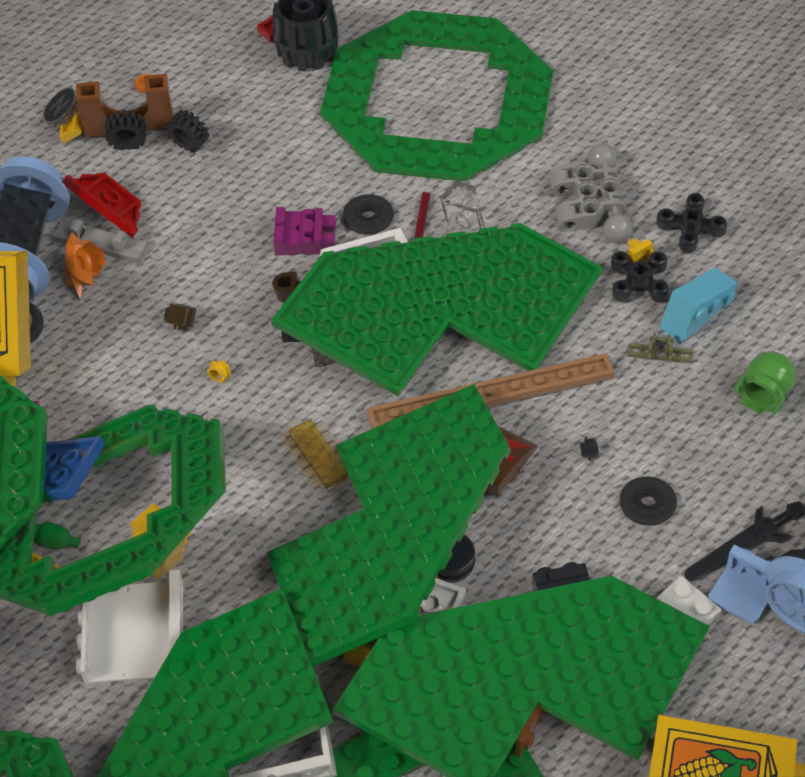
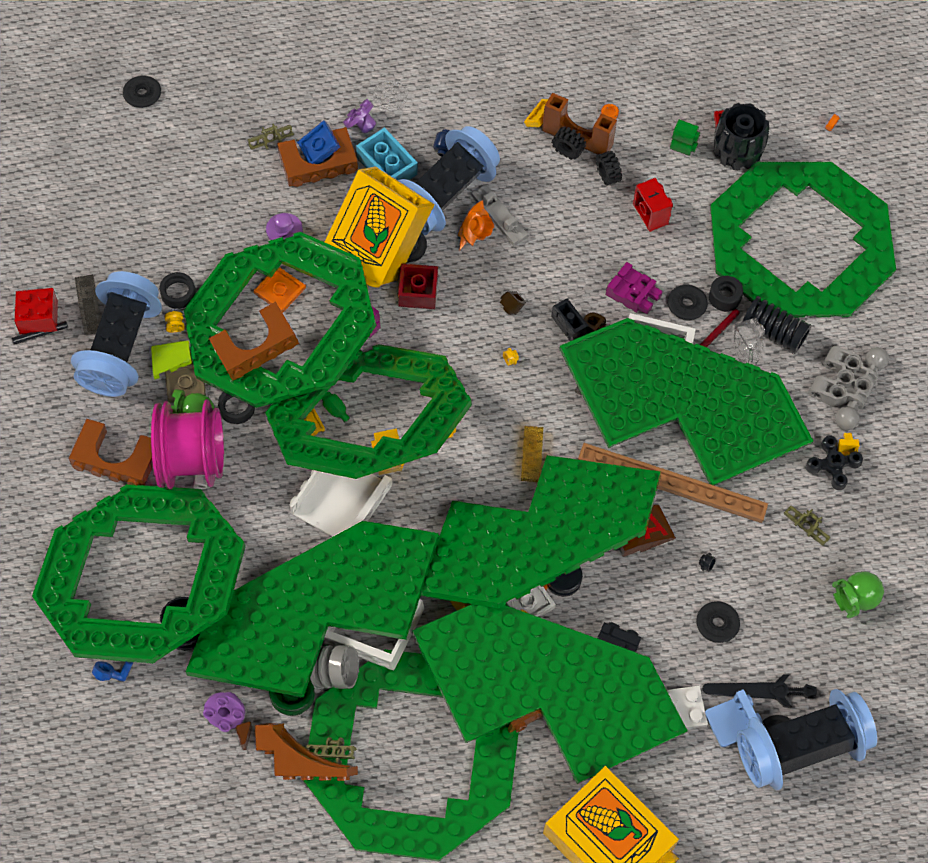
camera: 30 degrees right, 10 degrees up
(61, 107) = (536, 99): tile -> none
(61, 357) = (418, 286): none -> dark red brick
(68, 465) = (368, 366): blue plate -> none
(108, 199) = (522, 189): red wing -> none
(247, 62) = (685, 138): none -> green brick
(257, 296) = (569, 320): none -> black brick
(261, 139) = (652, 204): none -> red brick
(402, 193) = (726, 303): none -> black tyre
(487, 177) = (780, 336): none -> black piece
(691, 223) = (901, 445): black gear -> none
(696, 303) = (858, 506): medium azure wedge -> none

